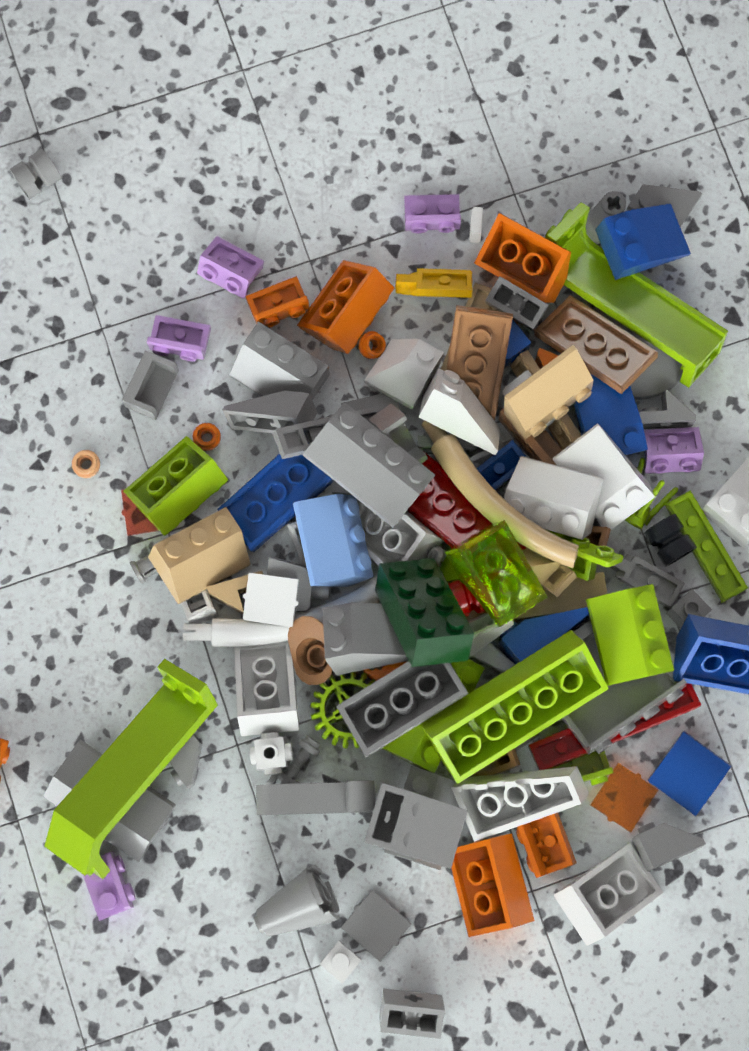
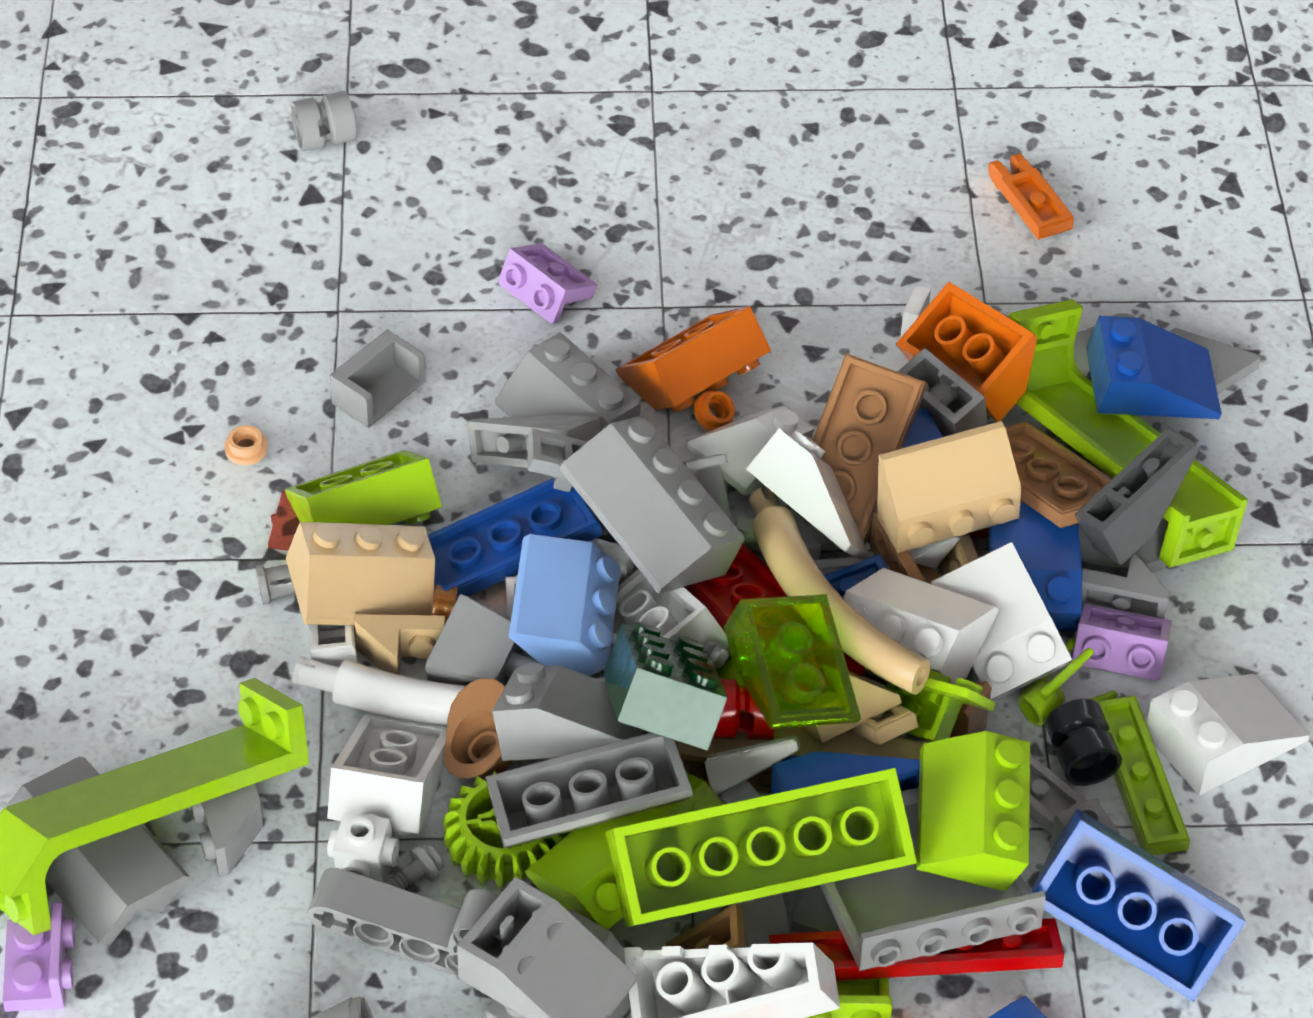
camera: 15 degrees right, 30 degrees down
(179, 338) = (443, 337): lavender bracket -> none
(205, 428) = (438, 452): orange plate -> none
(257, 559) = (444, 601): none -> clear orange bush
(270, 599) = (443, 647): white piece -> none
(278, 302) = (602, 331): orange bracket -> none
(432, 213) = (857, 292): lavender bracket -> none
(435, 283) = (817, 359): yellow hinge -> none
(521, 96) = (1031, 197): none -> orange hinge
(665, 358) = (1136, 499): none -> dark grey slope

